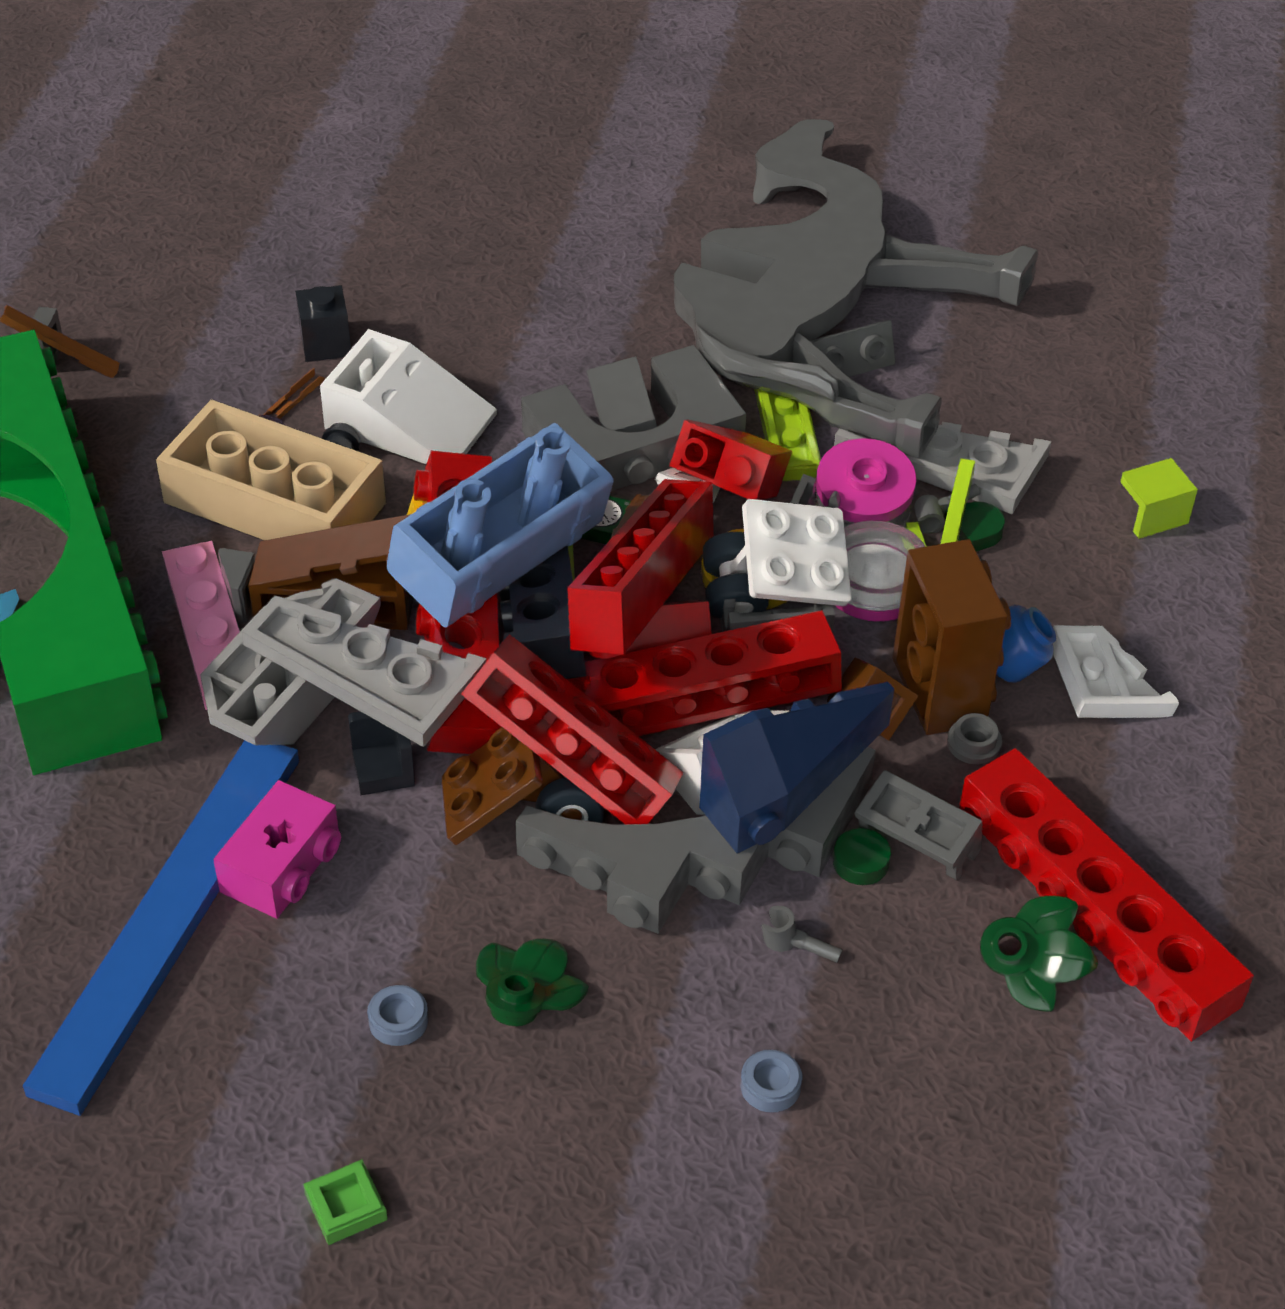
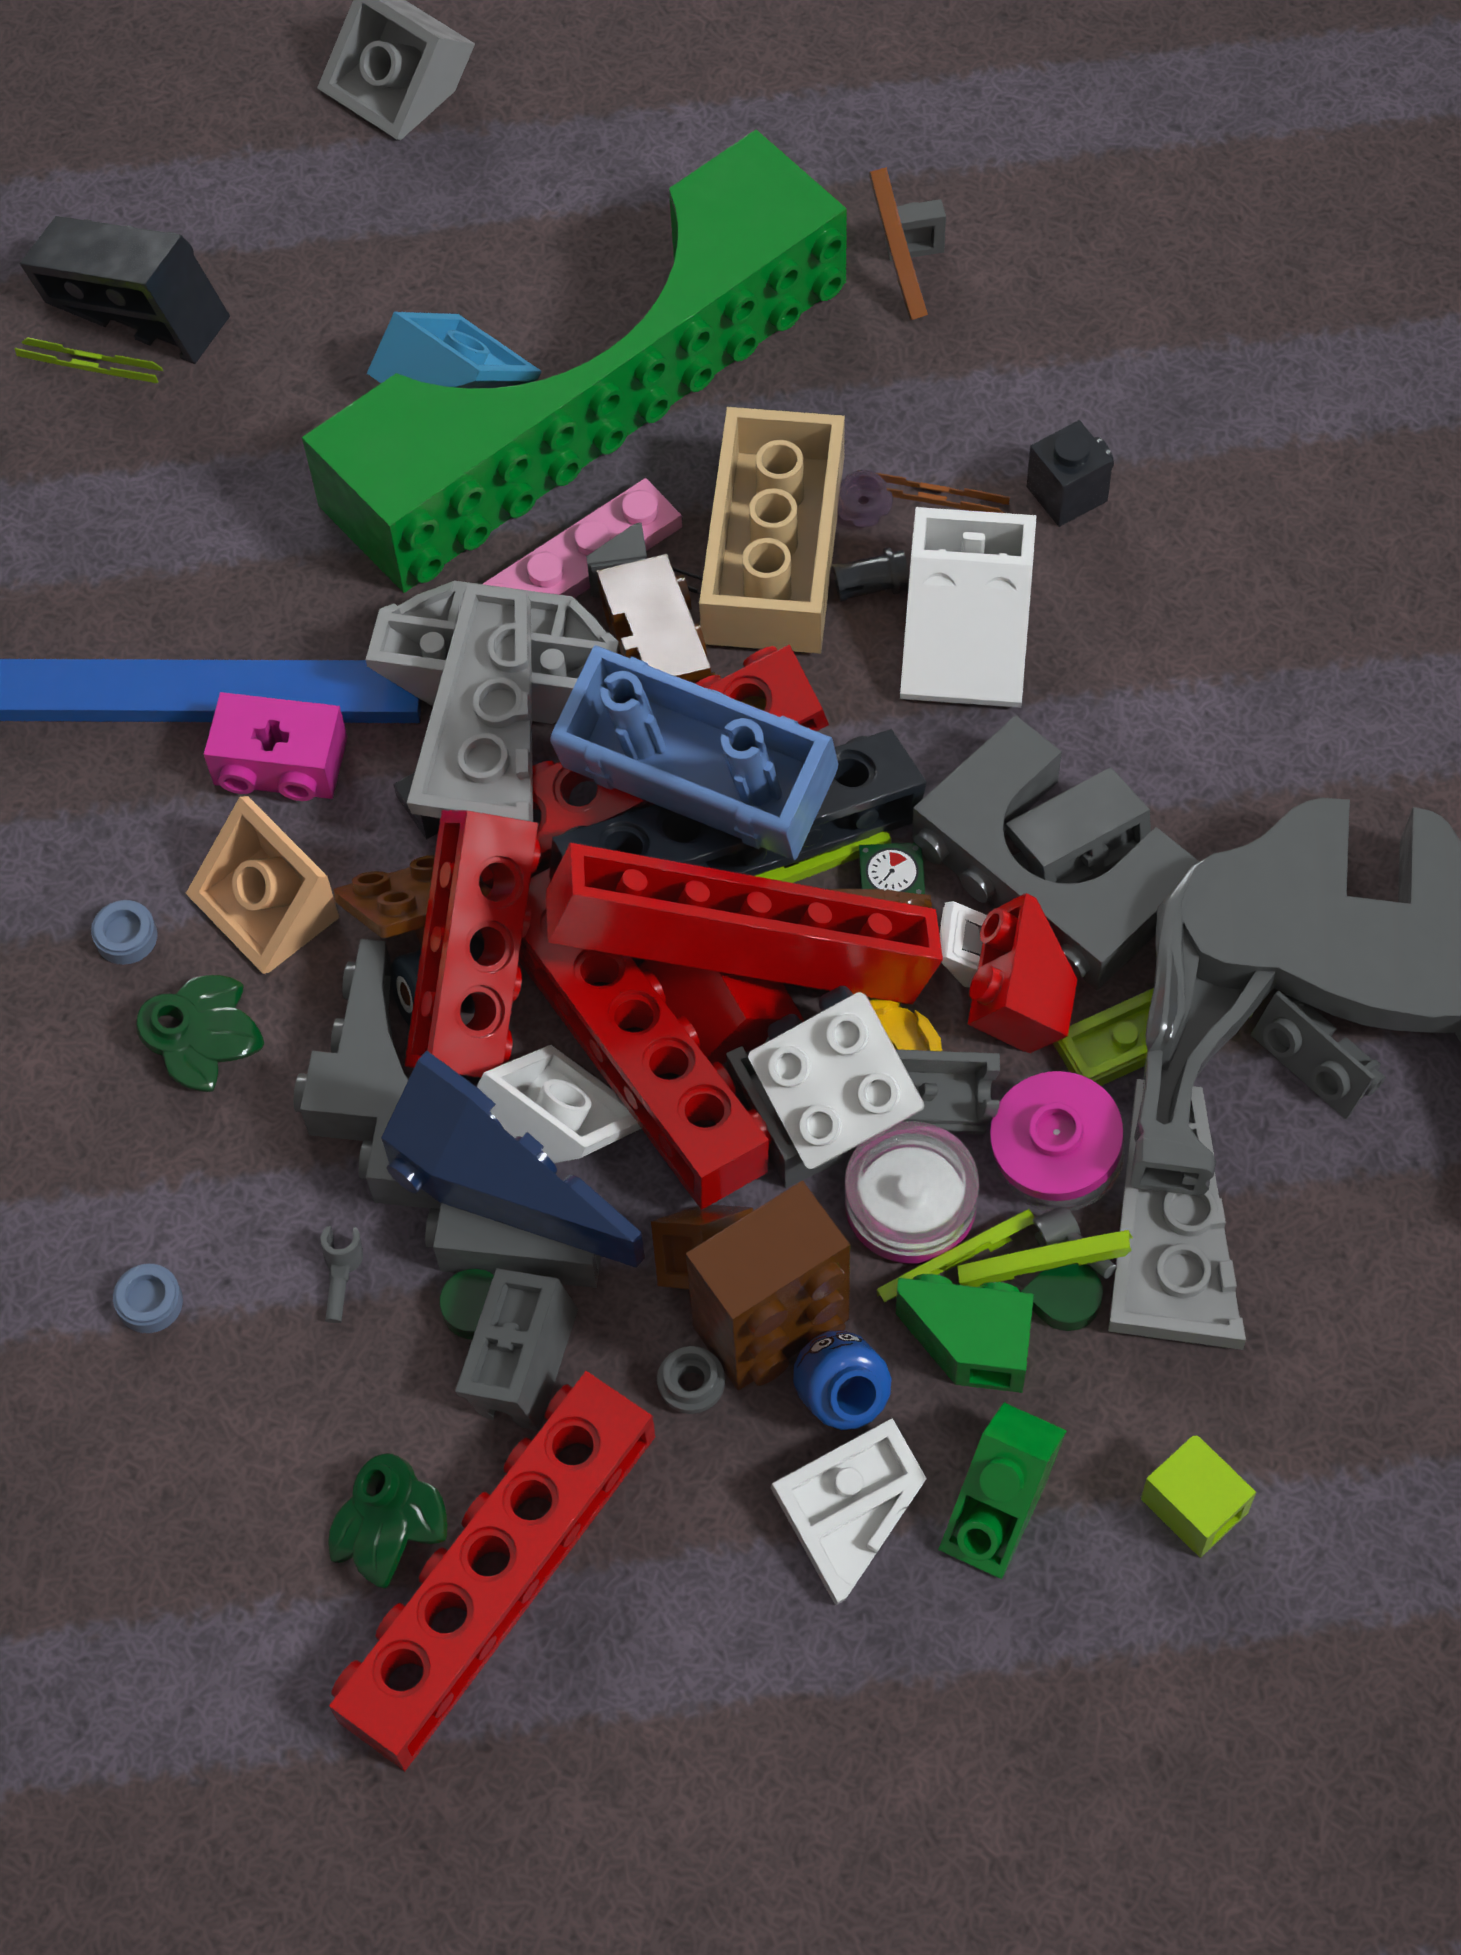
camera: 75 degrees right, 15 degrees up
(416, 888) = (262, 888): none -> light nougat slope
(1013, 559) = (970, 1331): none -> green slope
(1121, 588) = (1002, 1489): none -> green slope

